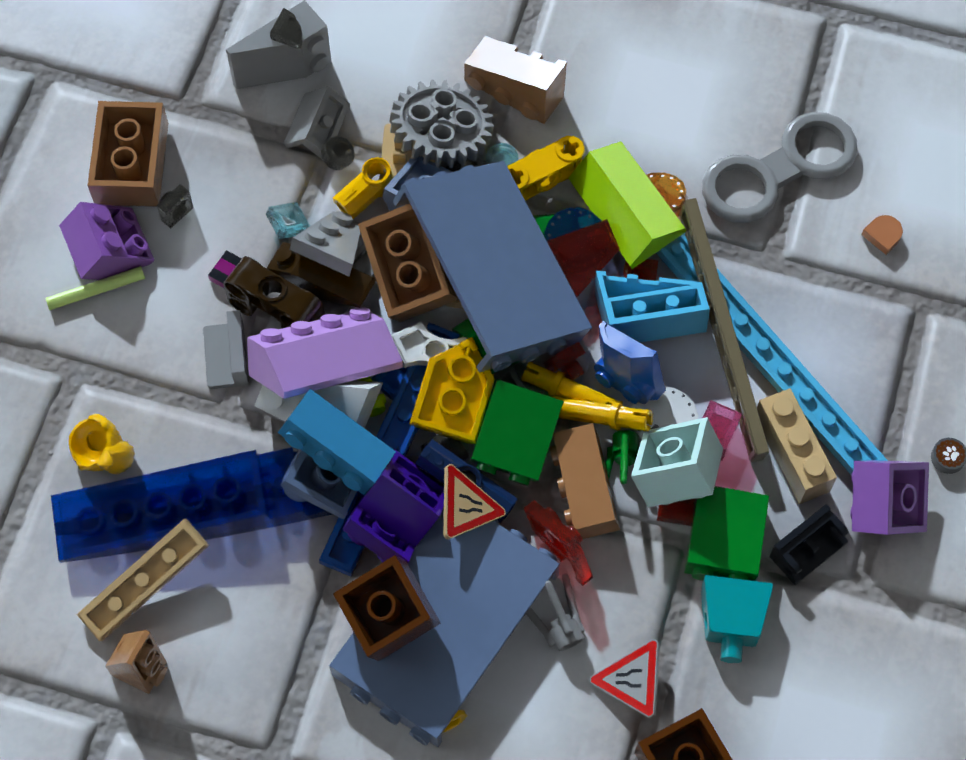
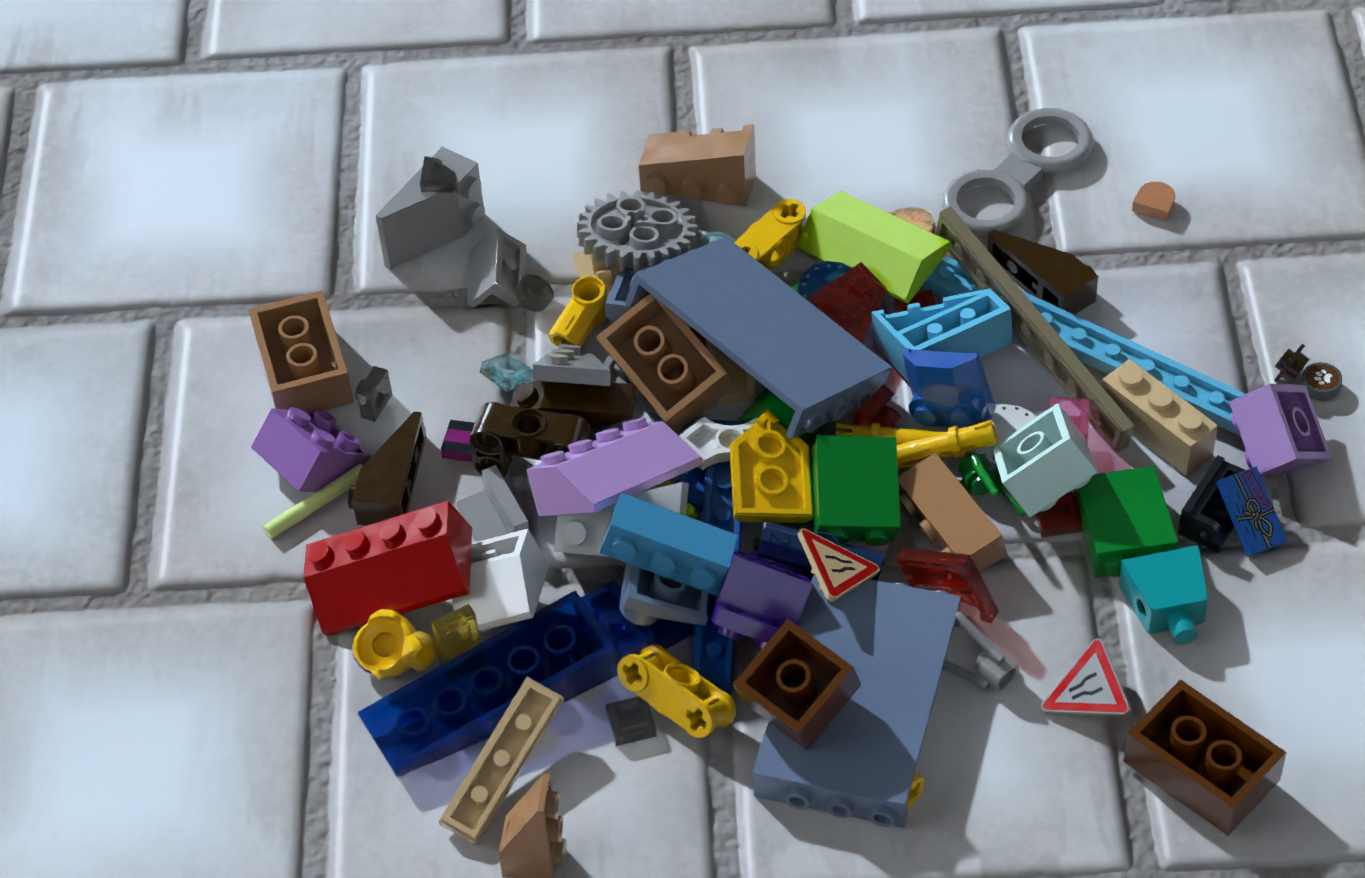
camera: 15 degrees left, 15 degrees down
(118, 379) = (389, 566): none -> red slope
(145, 459) = (455, 633): none -> clear yellow tile
(156, 289) = (389, 475): none -> dark brown slope
(197, 420) = (504, 580): none -> white slope
(261, 574) = (630, 720): none -> clear smoke tile
(302, 564) = (676, 691): none -> yellow piece
(762, 277) = (1045, 271): none -> dark brown slope
(834, 563) = (1251, 511): none -> blue tile
(929, 433) = (1291, 364): none -> dark brown plate

